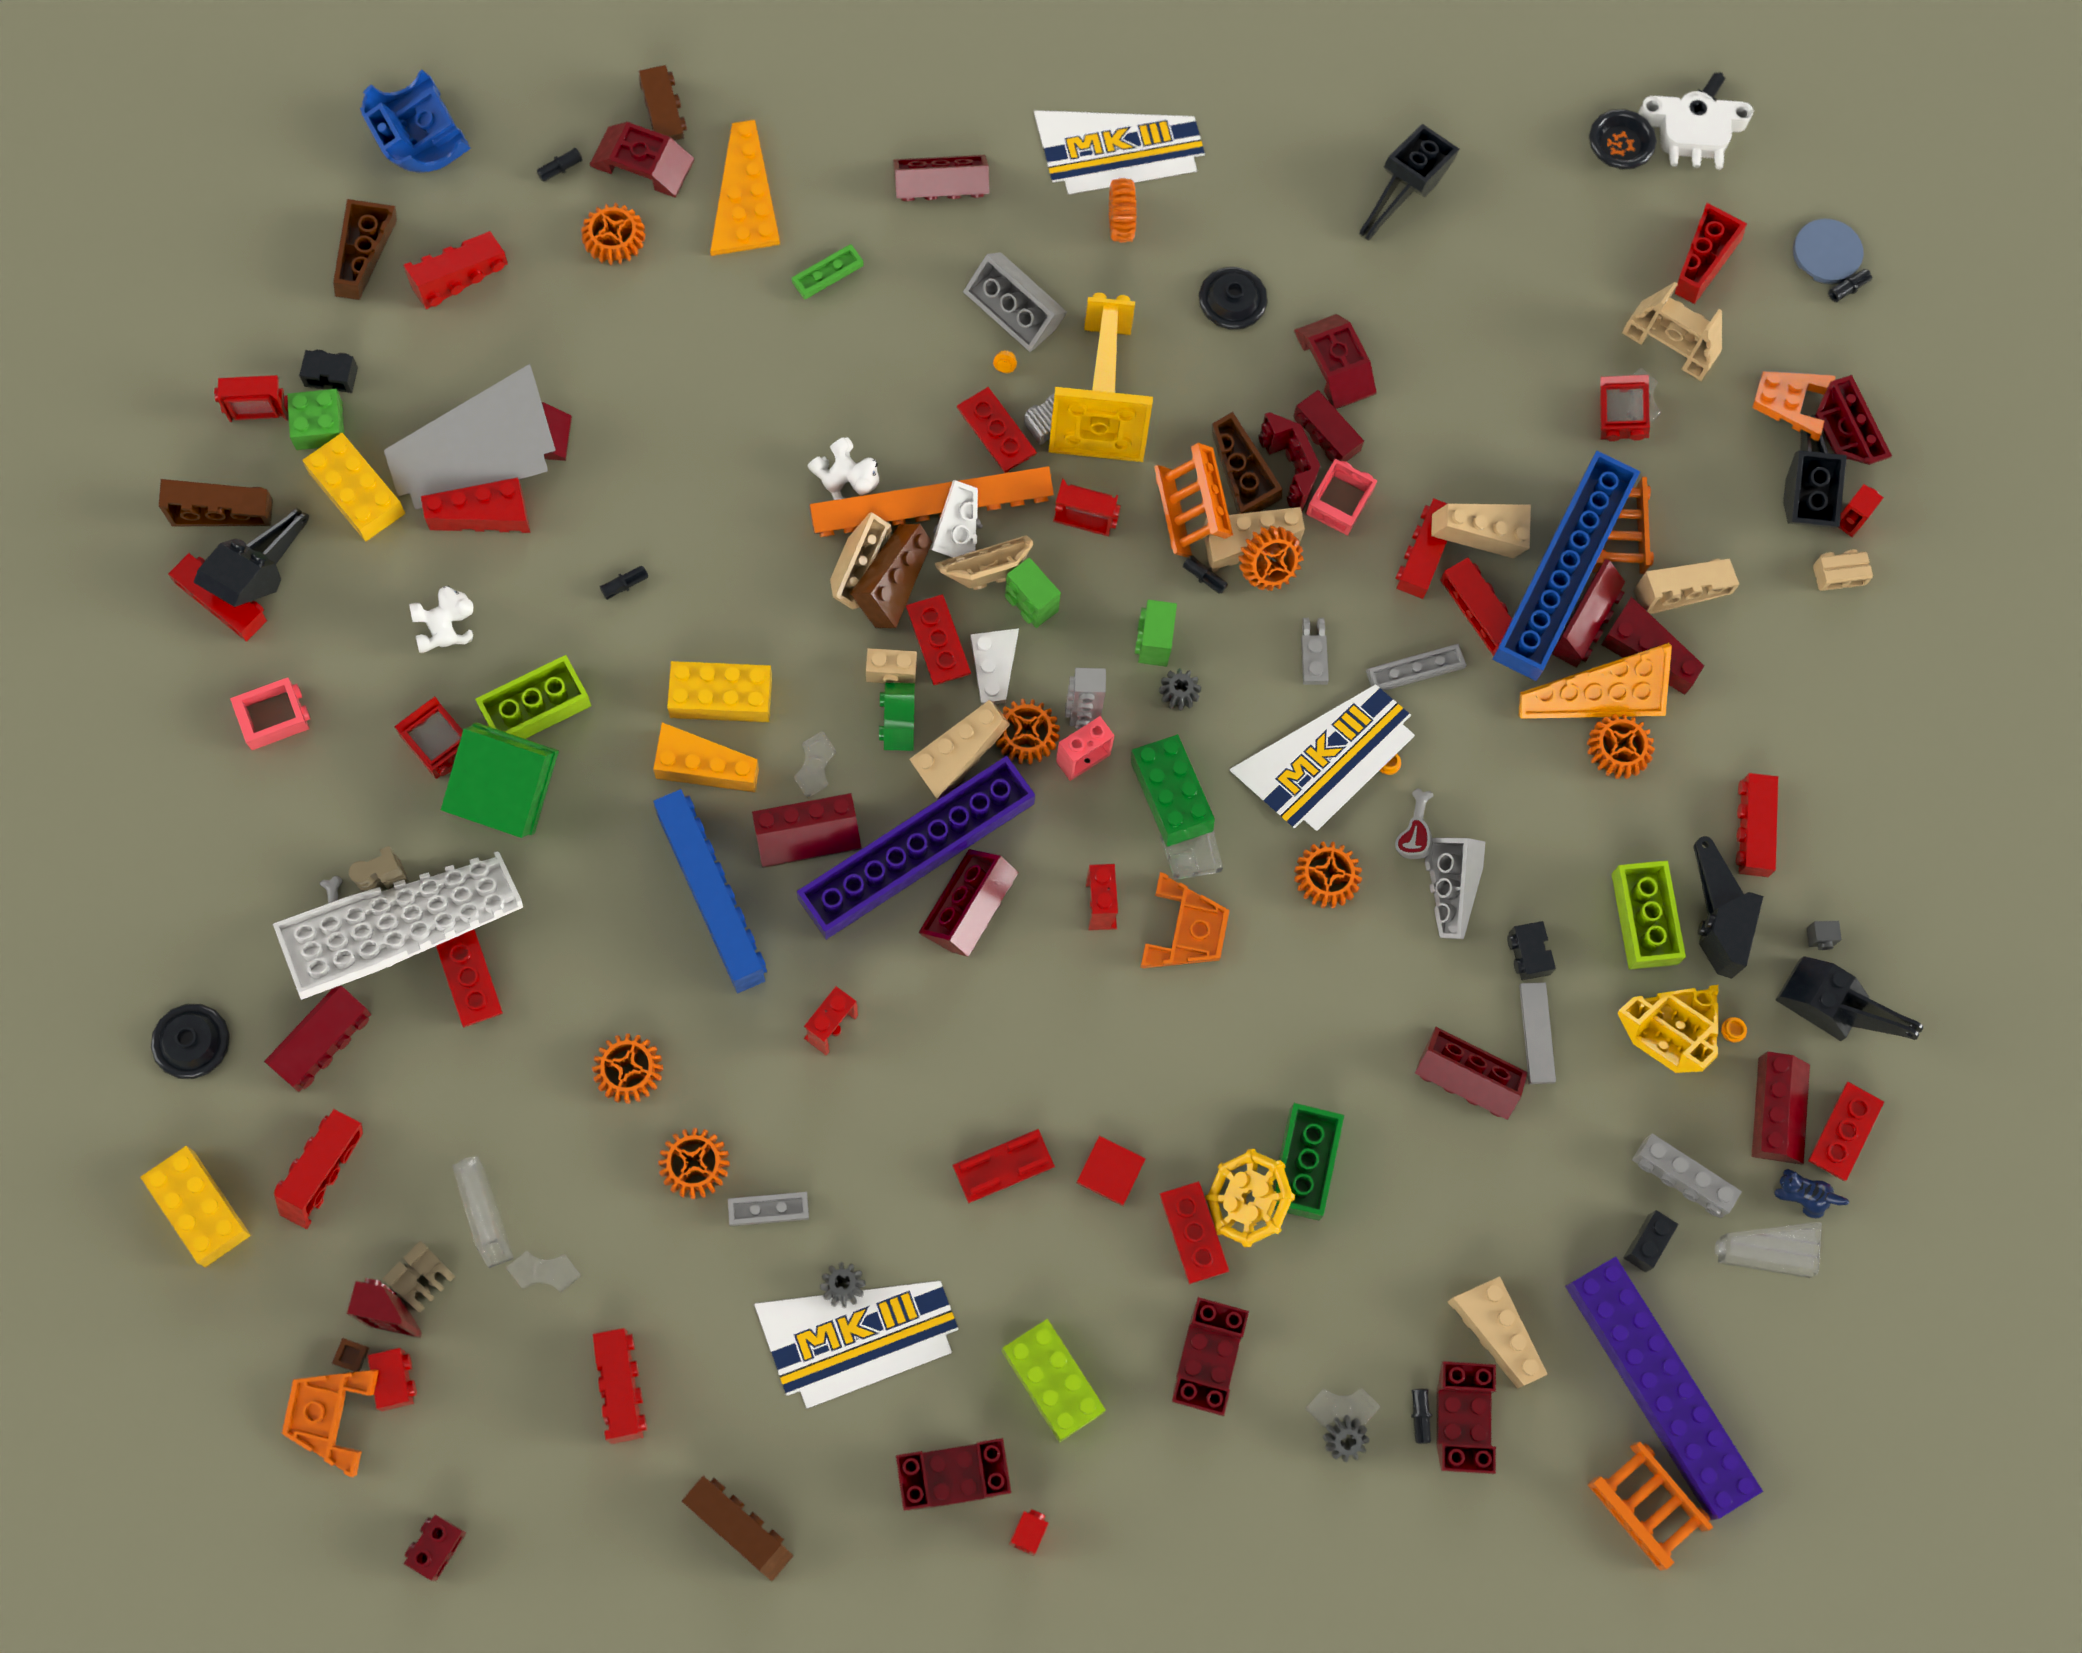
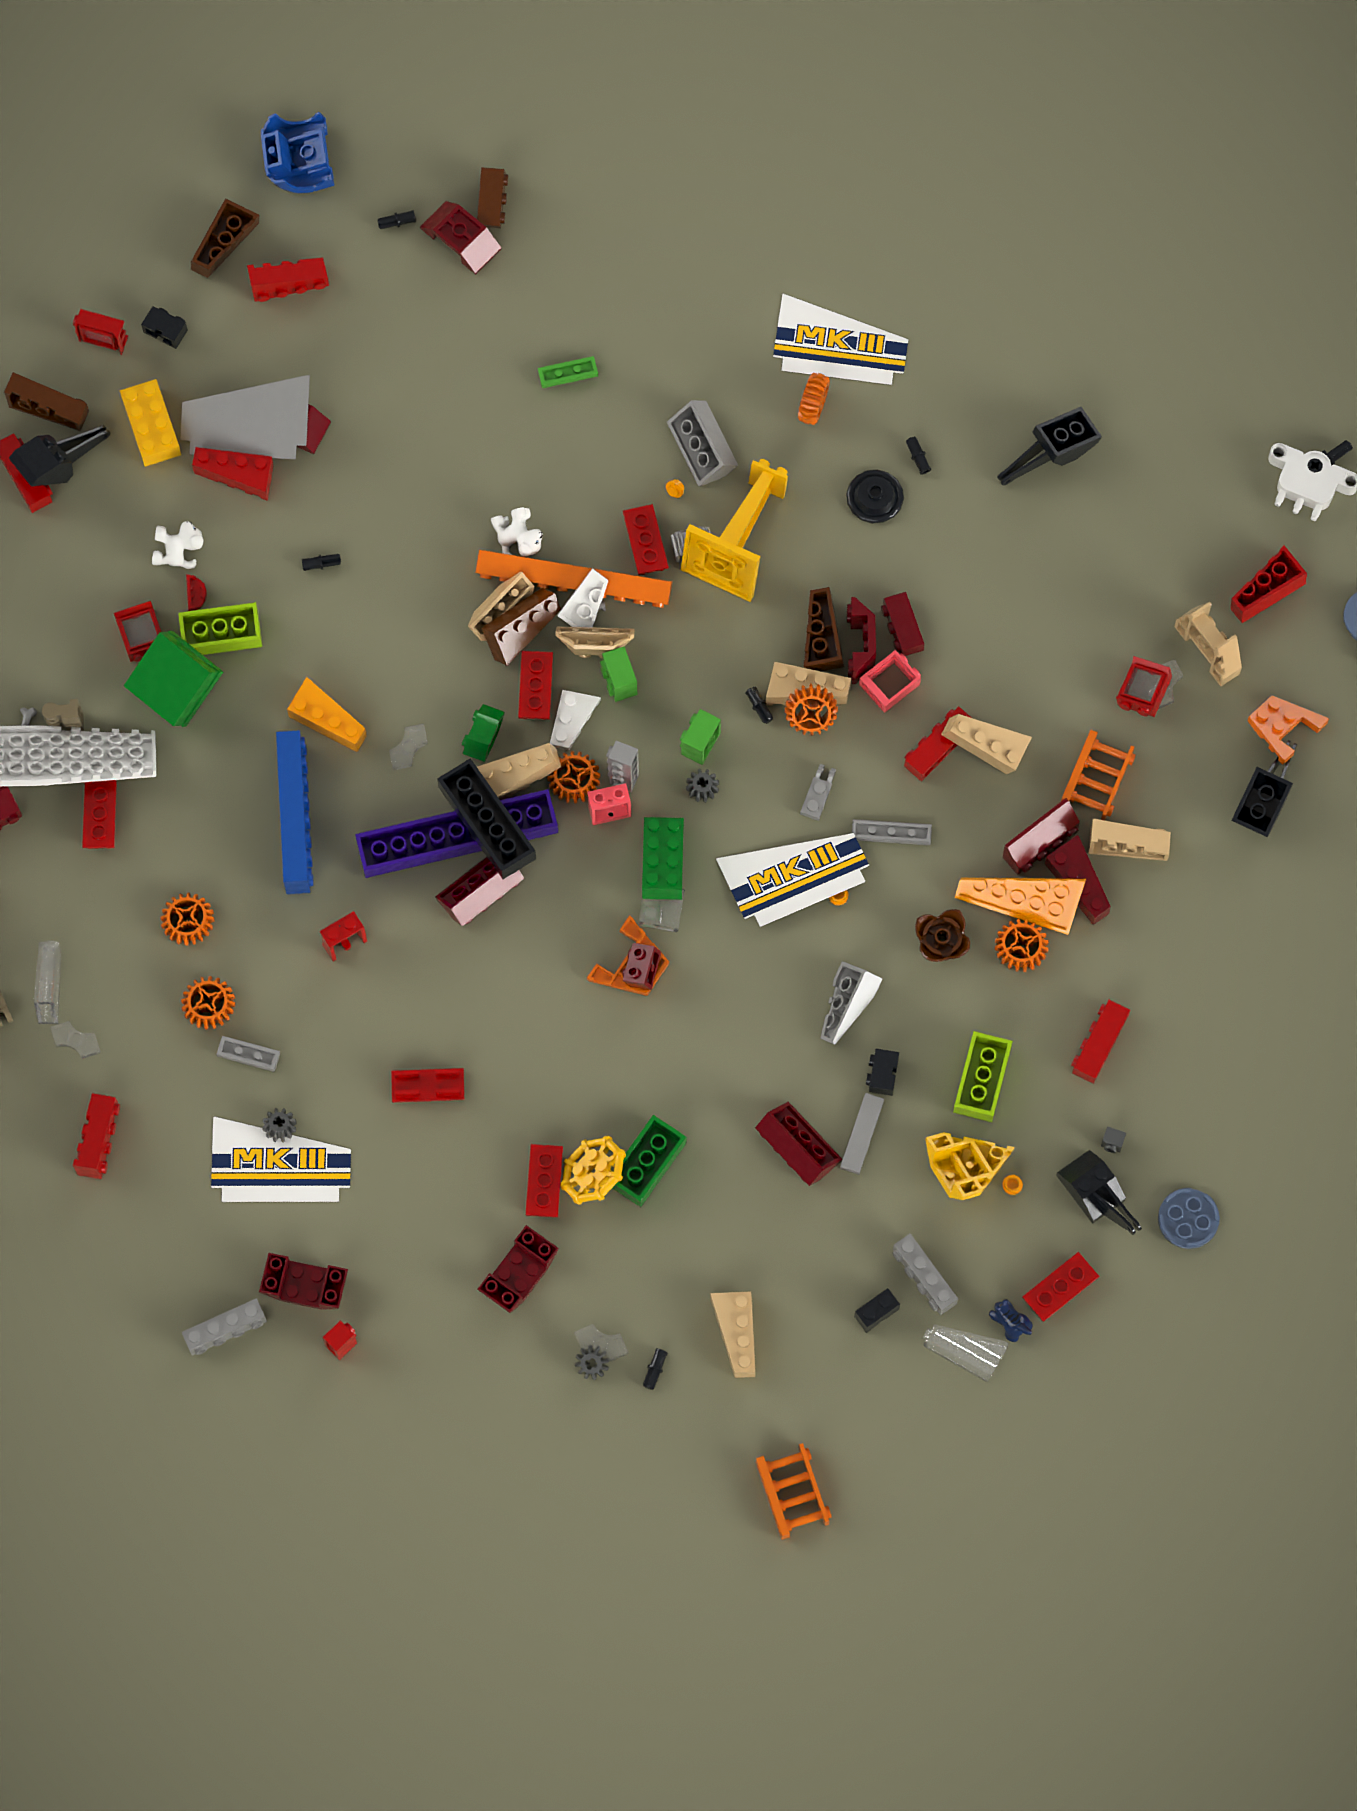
camera: 30 degrees right, 0 degrees up
(277, 732) = (30, 588): coral window -> none
(314, 418) = (141, 360): bright green brick -> none
(485, 668) = (195, 592): none -> red tile
(619, 223) = (430, 283): orange gear -> none
(719, 691) = (359, 668): yellow brick -> none
(737, 1527) = (142, 1262): reddish brown wedge -> none
(745, 205) = (527, 296): light orange wing -> none
(806, 830) = (382, 793): dark red slope -> none
(874, 1572) = (223, 1327): none -> light grey brick
(891, 666) = (492, 693): tan brick -> none
(941, 177) = (685, 324): slope -> none
(951, 816) = (486, 818): none -> black brick
(1053, 1380) = (401, 1245): lime brick -> none
(1086, 509) = (687, 624): red window -> none
(1103, 903) = (576, 918): red window -> none
(1111, 1170) = (503, 1116): red tile -> none
(1203, 927) = (641, 966): none -> dark red brick
(1212, 503) = (783, 647): orange fence -> none
(1262, 237) = (918, 455): none -> black axle
(1317, 873) = (768, 971): orange gear -> none
(1340, 359) = (933, 573): dark red slope -> none
(1417, 838) = (834, 959): light grey piece -> none
(1465, 1417) = (686, 1380): dark red slope -> none
(1477, 602) = (961, 802): red brick -> none
(1533, 751) = (950, 924): none -> reddish brown brick
(1566, 566) = (1034, 792): blue brick -> none
(1622, 139) = (1242, 470): black piece -> none
(1664, 1389) = (838, 1414): dark purple brick -> none
(1731, 913) = (1046, 1096): black slope -> none
(1781, 1108) = (1022, 1254): dark red slope -> none
(1842, 570) = (1260, 872): tan brick -> none
(1850, 424) = (1317, 760): dark red wedge -> none
(1859, 509) = (1291, 829): red brick -> none
(1945, 994) = (1188, 1218): none -> sand blue tile

